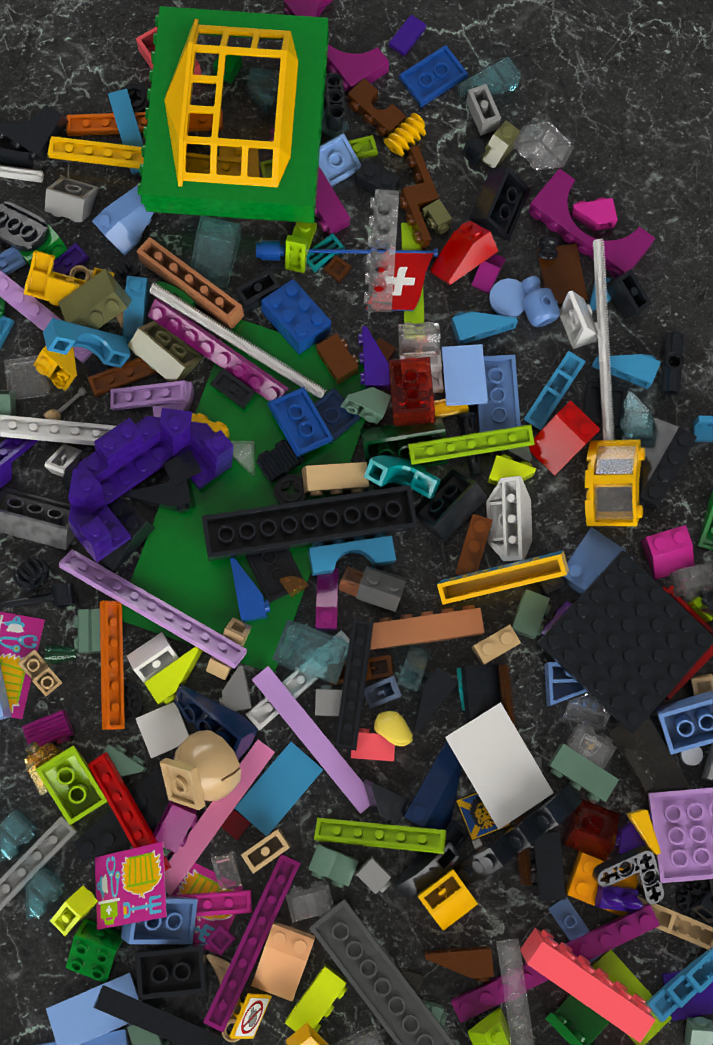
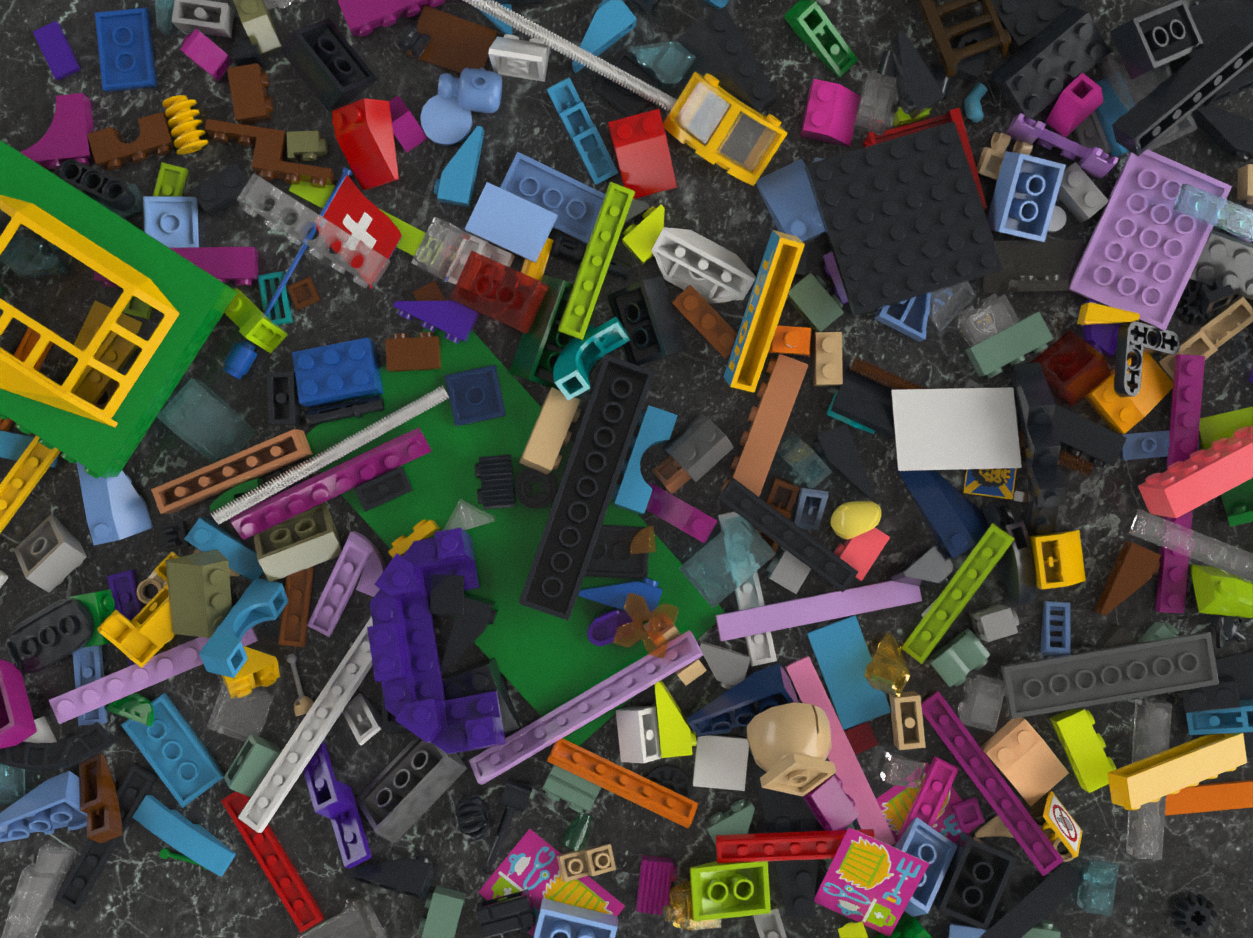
camera: 60 degrees left, 10 degrees up
(220, 595) = (604, 627): none -> dark purple bracket
(228, 624) = (633, 632): none -> clear orange plant
(278, 341) = (356, 408): none -> black pin
(298, 813) = (888, 667): none -> clear yellow slope
(300, 421) = (465, 435): blue tile -> none
(368, 403) = (486, 348): sand green slope -> none
(383, 925) = (1065, 640): none -> medium blue slope
(450, 165) = (250, 94): none -> reddish brown brick
(459, 123) = (206, 54): none -> magenta slope
(493, 611) = (791, 341): none -> orange torso
(618, 898) = (1156, 382): dark purple tile -> none

